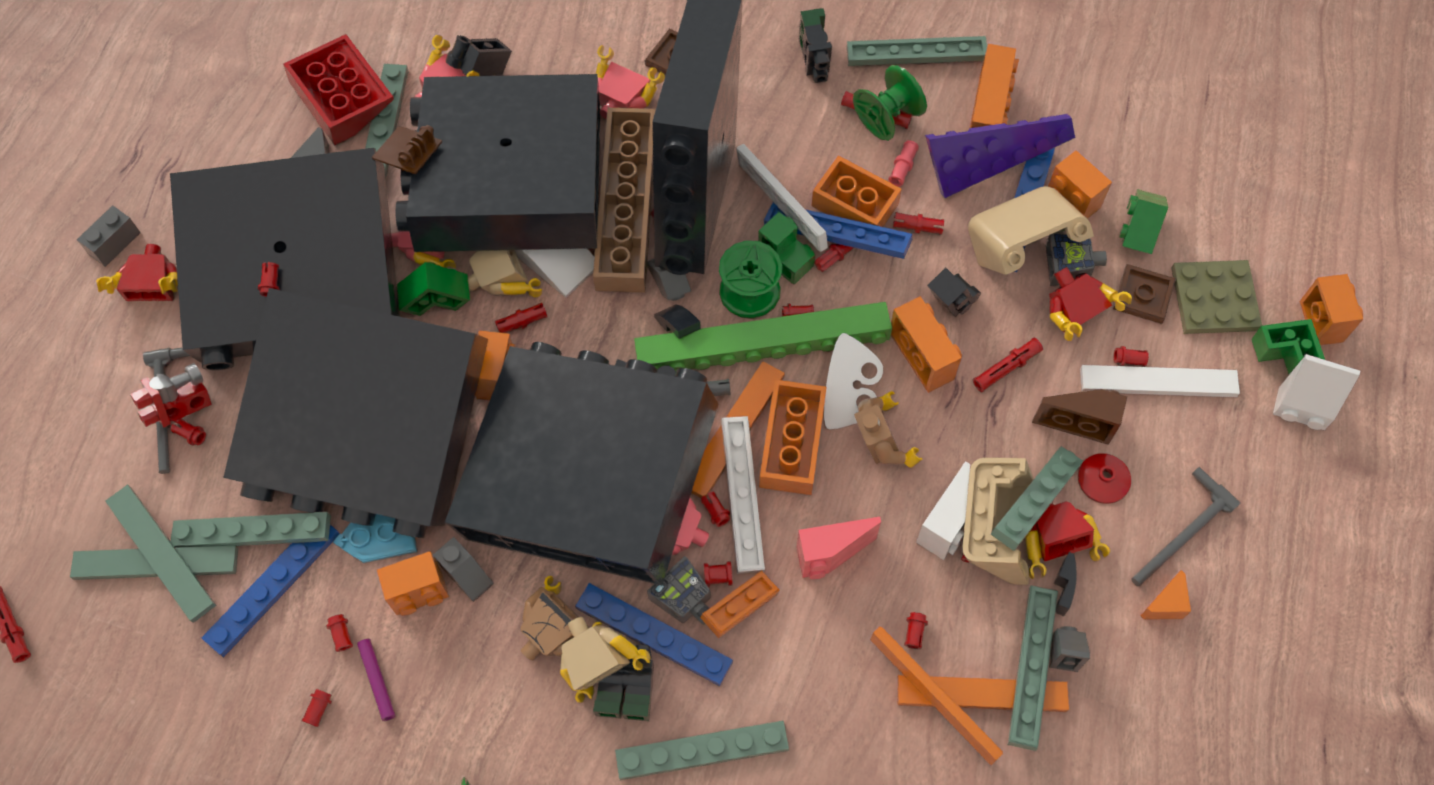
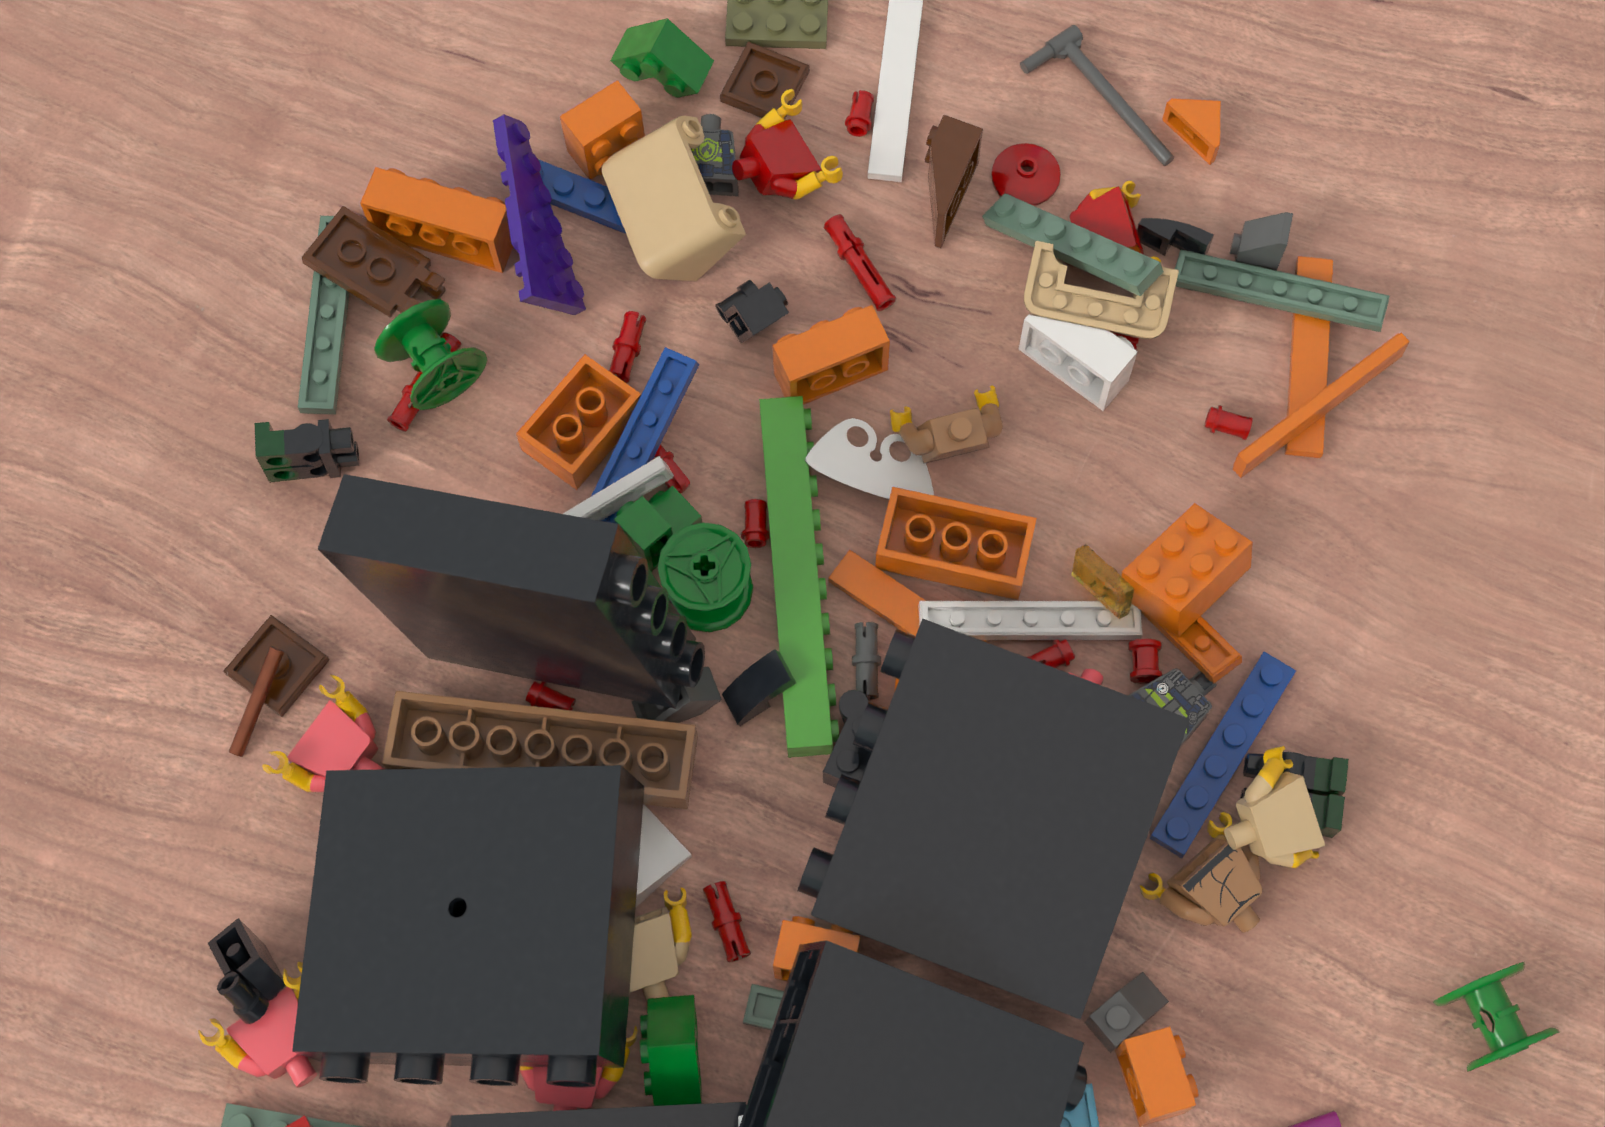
camera: 85 degrees left, 5 degrees up
(408, 148) = (459, 1060): reddish brown hinge -> none
(645, 45) = (256, 702): none -> copper bar
(701, 750) = (1381, 702): sand green plate -> none
(774, 538) = (1102, 581): none -> clear yellow plate
(786, 595) = (1188, 569): none -> orange brick
(829, 546) = (1122, 504): coral slope -> none
(903, 163) = (523, 355): coral pin -> none
(953, 67) = (372, 264): none -> reddish brown tile

